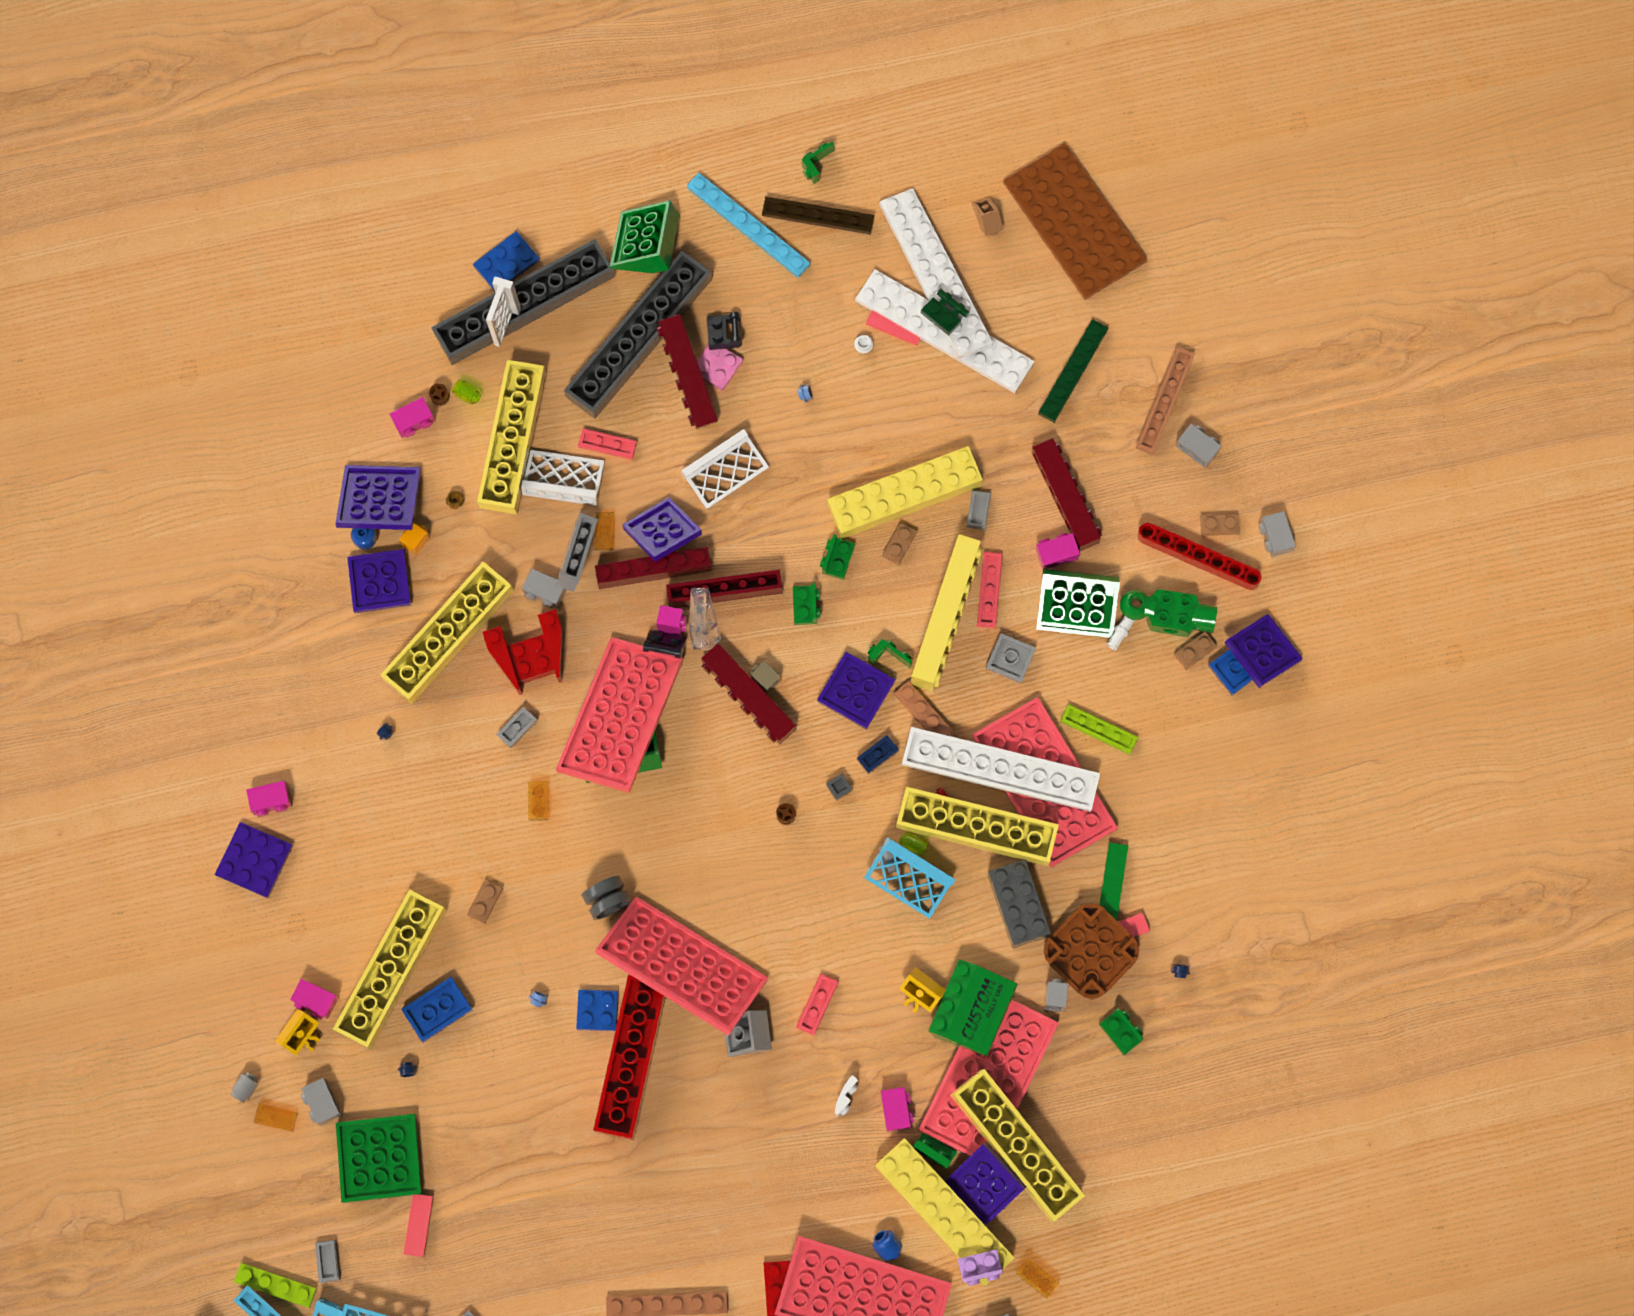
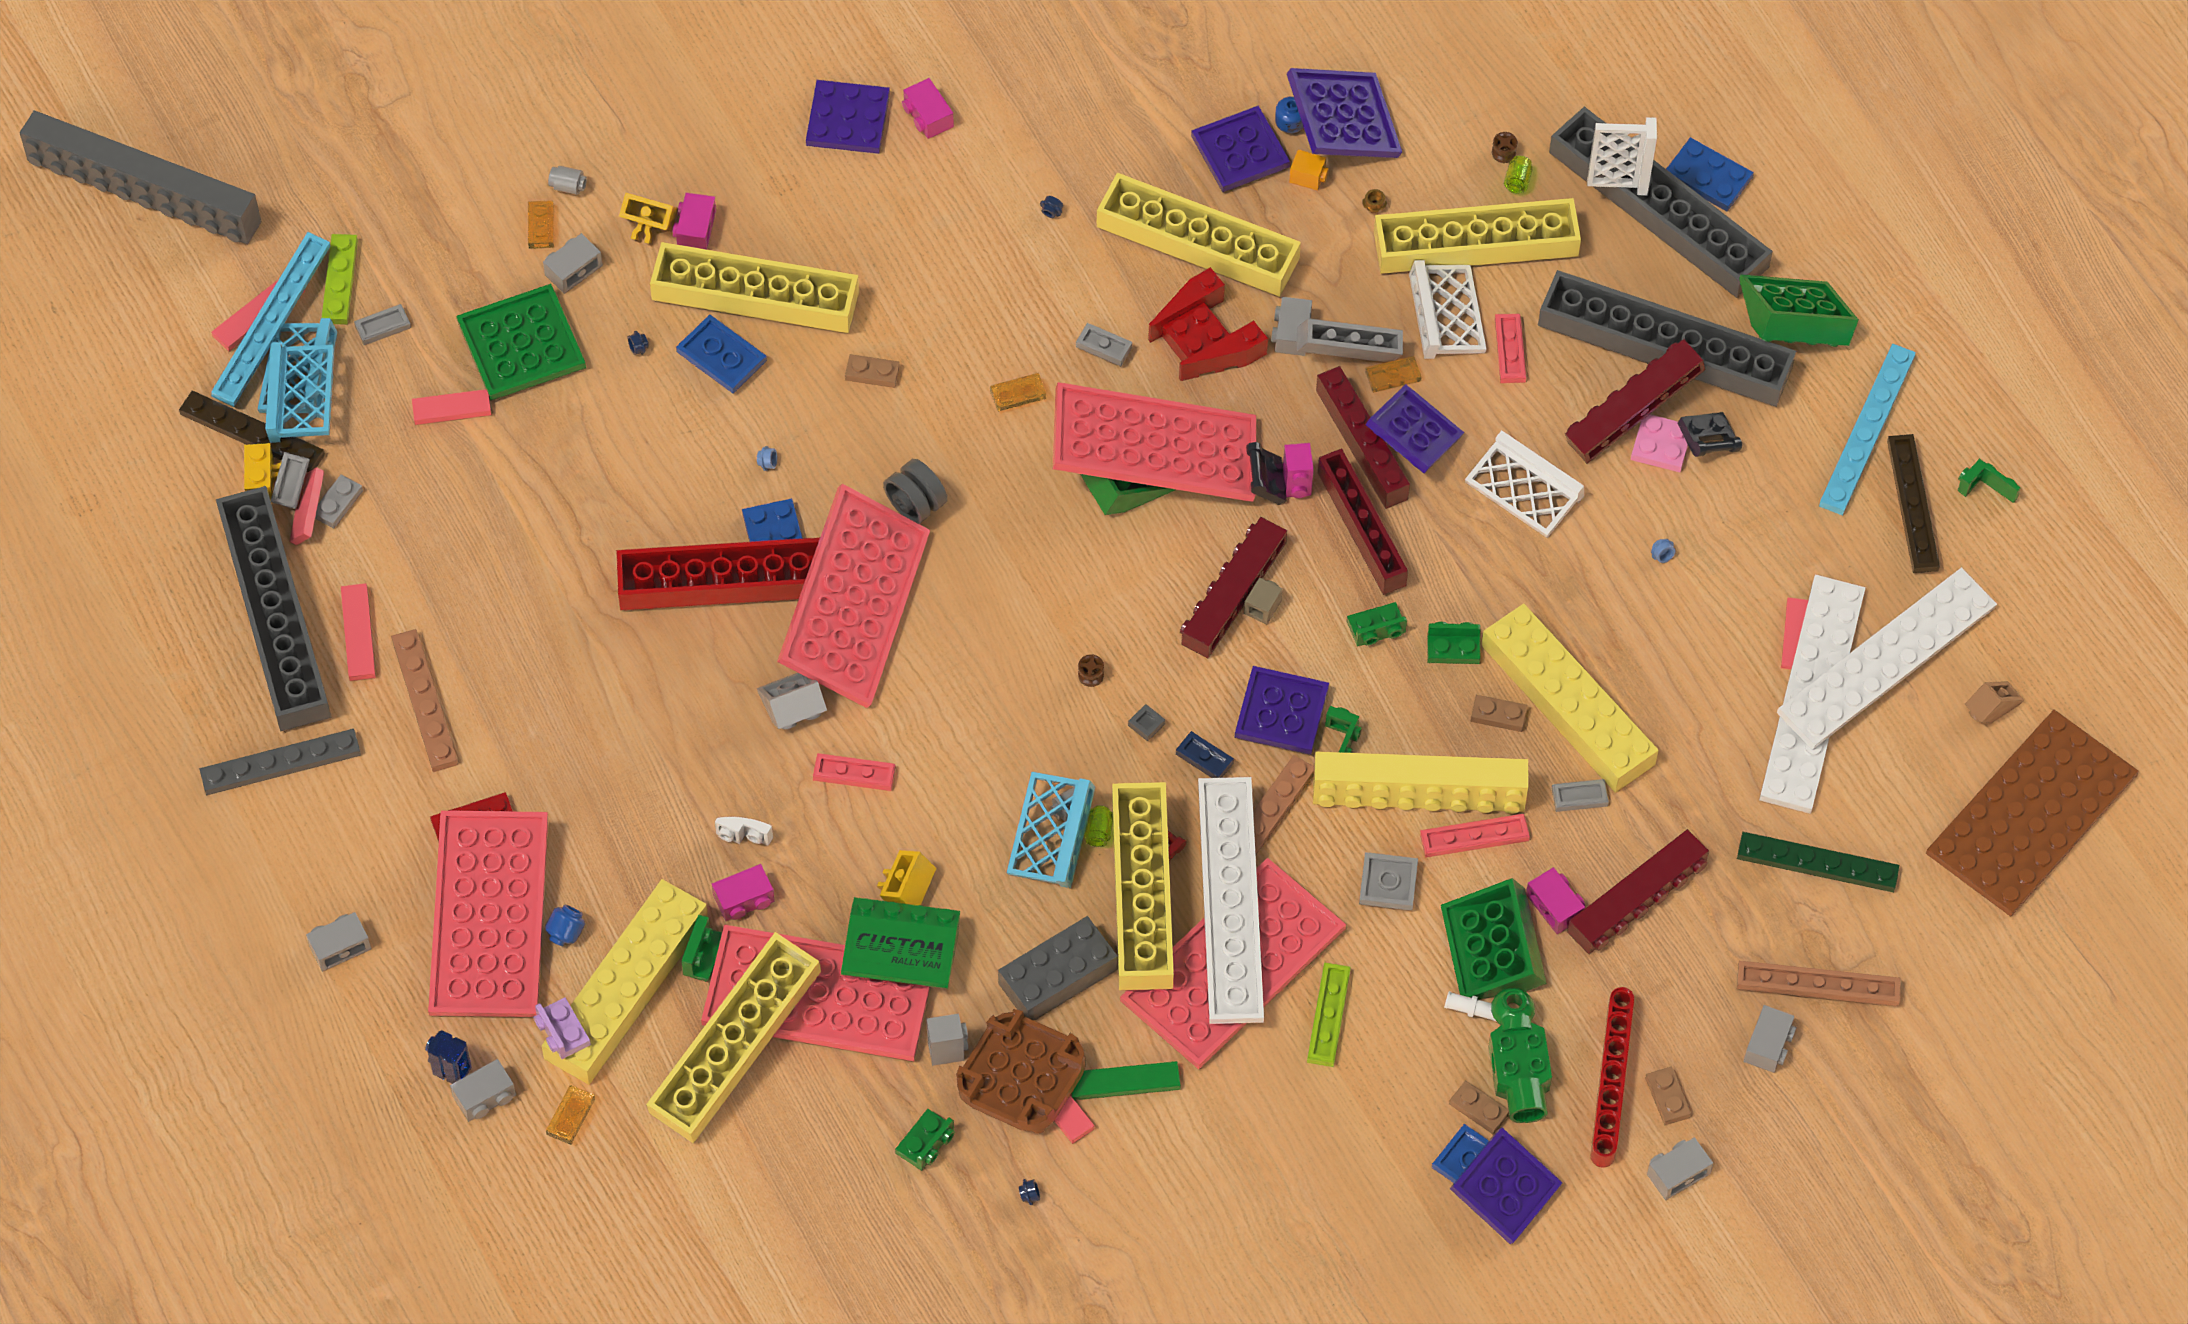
camera: 70 degrees right, 15 degrees down
(412, 418) = (1463, 126): dark pink brick -> none
(703, 622) = (1305, 504): clear slope -> none
(863, 344) = (1757, 601): white plate -> none
(941, 316) = (1824, 670): dark green plate -> none
(985, 1184) = (673, 1015): dark purple plate -> none

